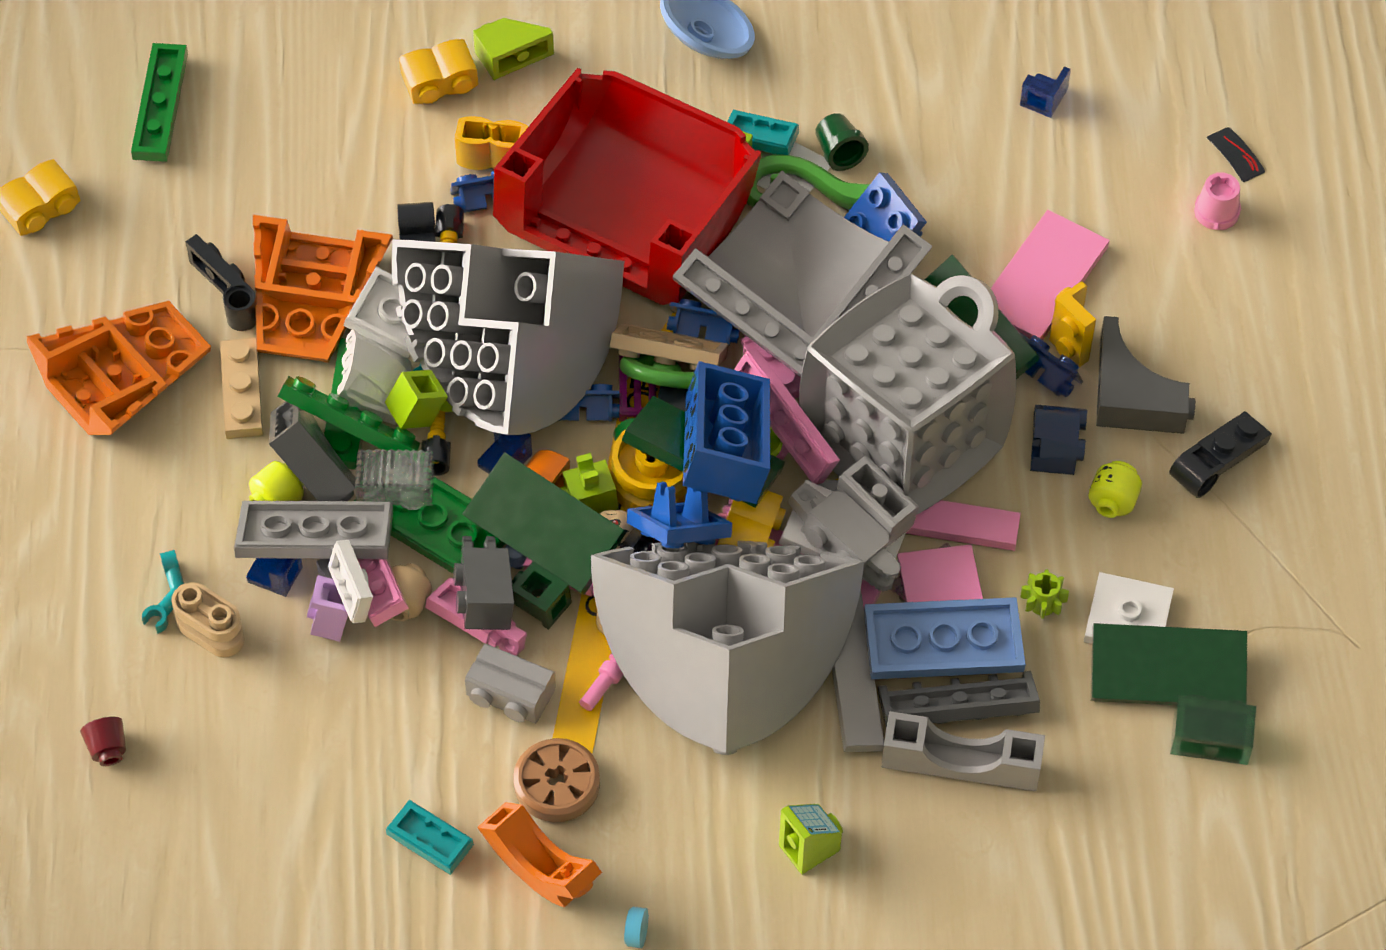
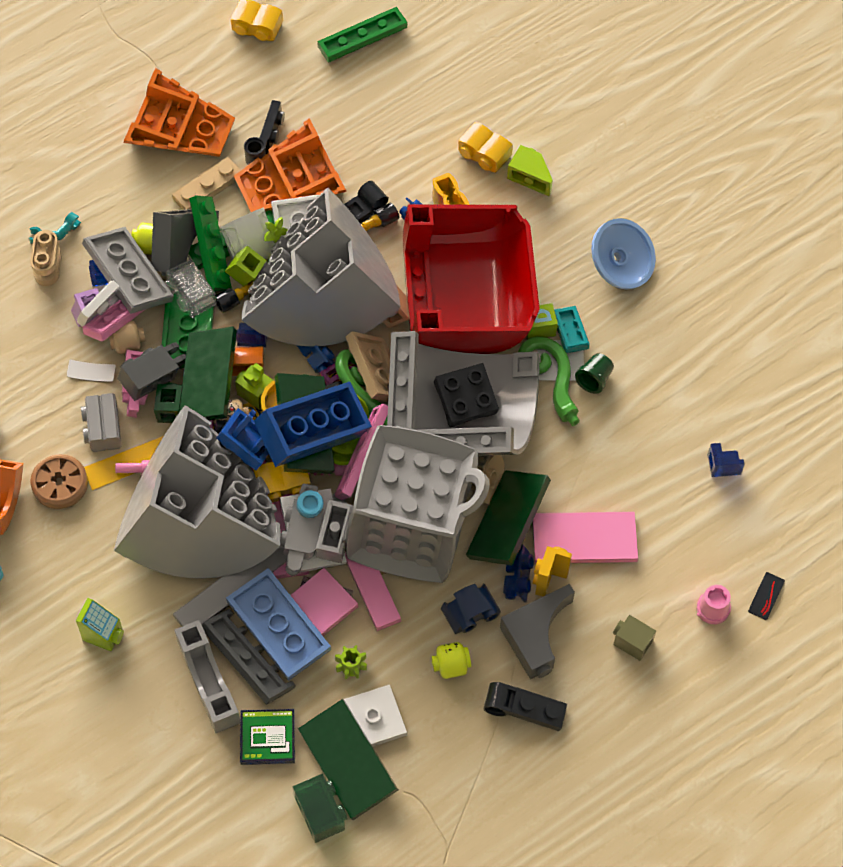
camera: 55 degrees right, 5 degrees up
(394, 338) = (275, 231): none -> lime plant
(415, 662) = (91, 371): none -> white sticker
(784, 272) = (466, 394): none -> black brick
(830, 498) = (310, 504): none -> medium azure tile
(885, 209) = (550, 426): blue plate -> none
(1081, 737) = (267, 736): none -> tile
(1208, 299) = (633, 637): none -> olive brick

